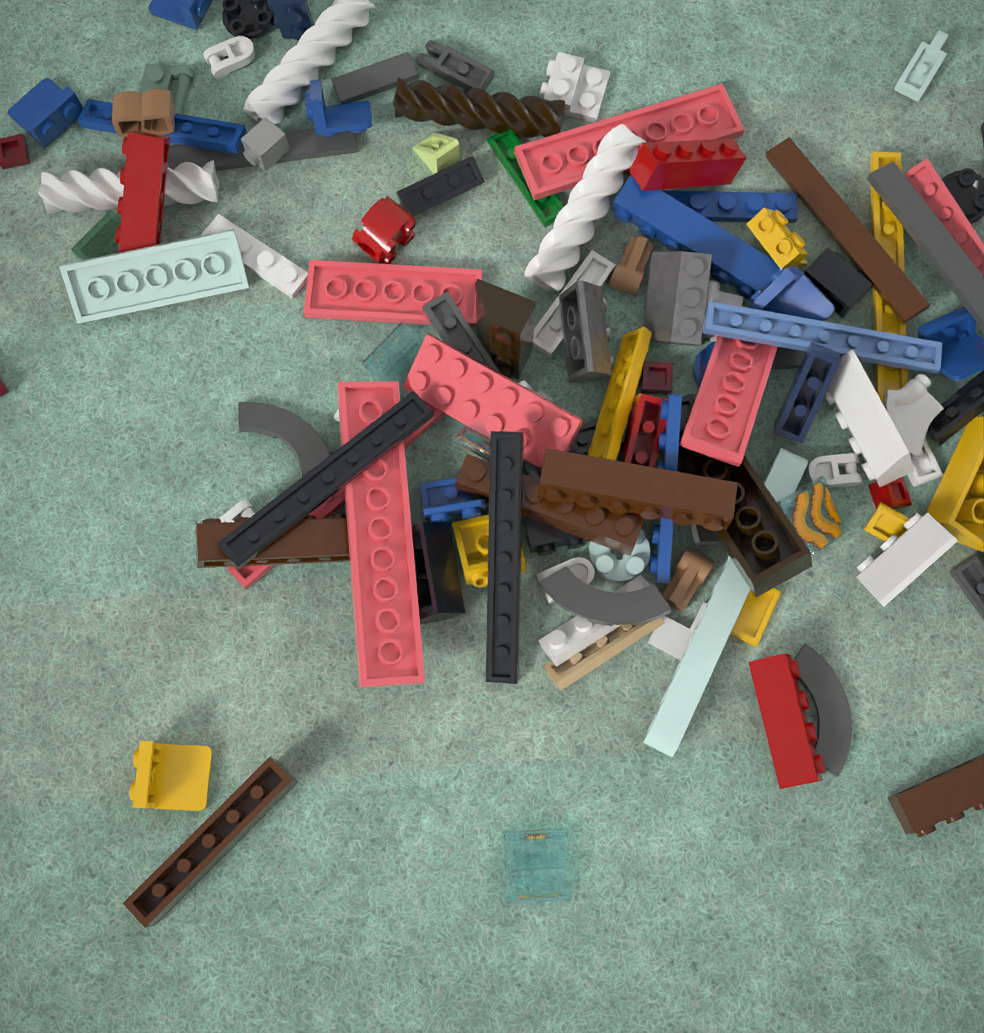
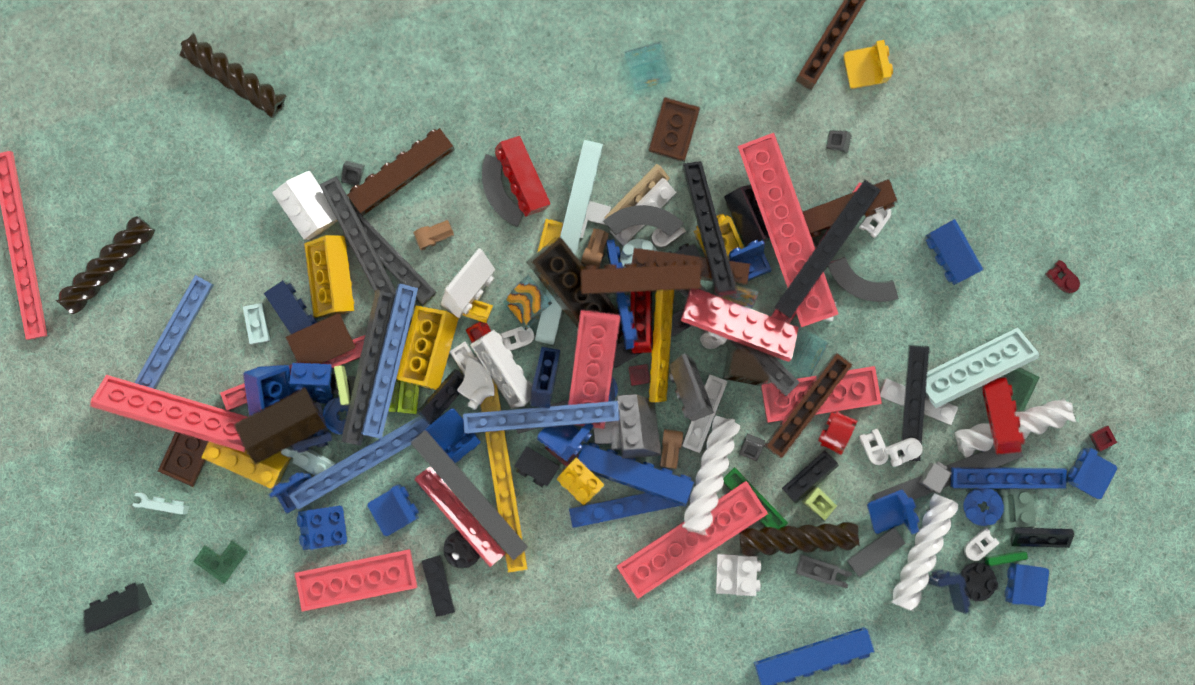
camera: 165 degrees right, 10 degrees up
(134, 444) = (953, 252): none -> blue slope
(142, 47) = (1042, 537): none -> black plate
(143, 112) = (1022, 478): medium nougat brick -> none
(200, 31) = (1005, 558): none -> green tile
(213, 87) = (988, 516): none -> blue plate
(256, 665) = (839, 140): none -> dark grey slope
(261, 247) = (915, 394): none -> black plate
(286, 187) = (911, 448): none -> white plate
(336, 198) = (875, 454): none -> white plate
(419, 269) = (808, 405): none -> reddish brown brick
(511, 247) = (752, 447): none -> dark grey slope
(517, 746) = (674, 129): none -> reddish brown tile
(687, 164) = (650, 520): red brick -> none
(847, 231) = (537, 506): reddish brown tile -> none
(922, 68) = (502, 645): light aqua plate -> none
(949, 659) = (431, 235): none -> medium nougat piece

